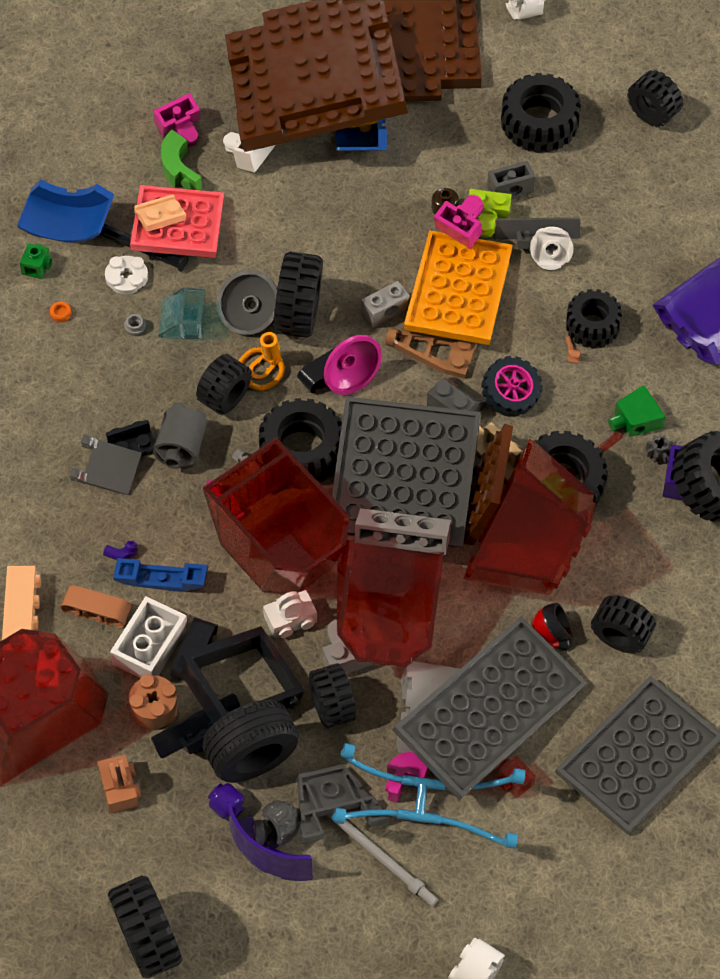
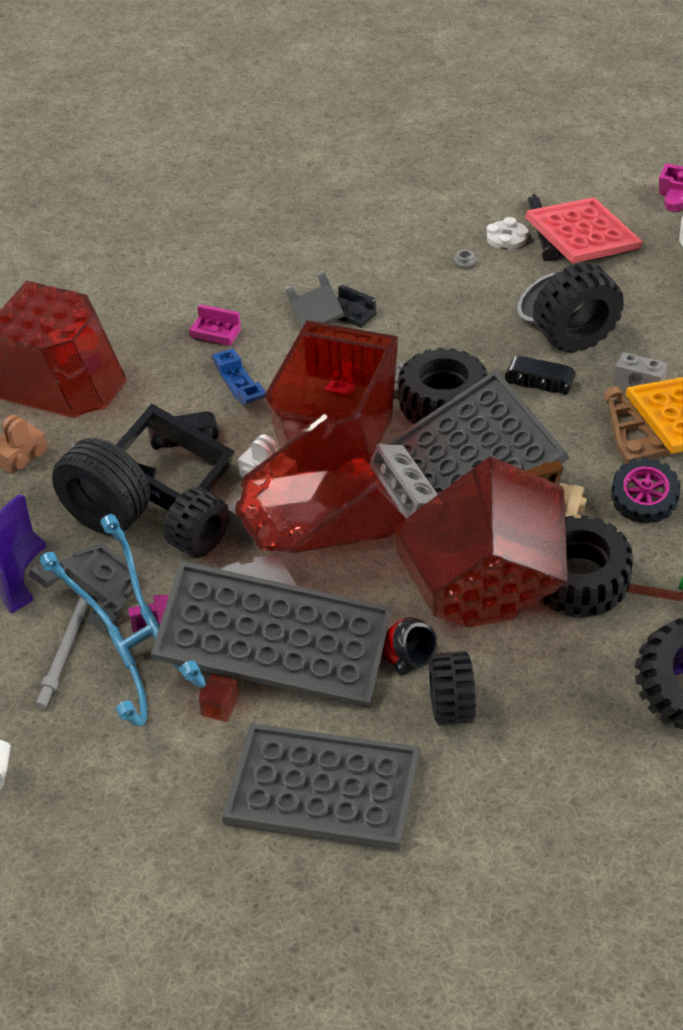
camera: 60 degrees right, 15 degrees down
(21, 599) = (143, 322): light nougat brick -> none
(35, 261) = (465, 185): green brick -> none
(60, 312) = (436, 221): orange tile -> none
(65, 215) = (524, 175): blue panel -> none
(74, 554) = (216, 325): none -> dark pink bracket
(96, 605) = (178, 360): nougat beam -> none
(126, 552) = (246, 354): dark purple arm -> none
(149, 639) = (172, 391): white brick -> none
(153, 702) = (109, 422): nougat brick -> none
(160, 213) = (575, 213): light nougat plate -> none
(172, 151) = (640, 202): bright green arch -> none
(180, 437) = (379, 316): dark grey cylinder -> none
(183, 314) = (501, 276): clear light blue slope -> none
(221, 795) = (47, 516): dark purple head -> none
(223, 384) = (450, 303): black tyre -> none
(258, 832) = (23, 546): dark grey tile -> none
(270, 353) = (515, 338): light orange piece -> none
(283, 821) = (40, 543): dark grey hair -> none
(352, 364) = (541, 385): dark pink dish -> none
(455, 395) = (592, 463): dark grey slope -> none

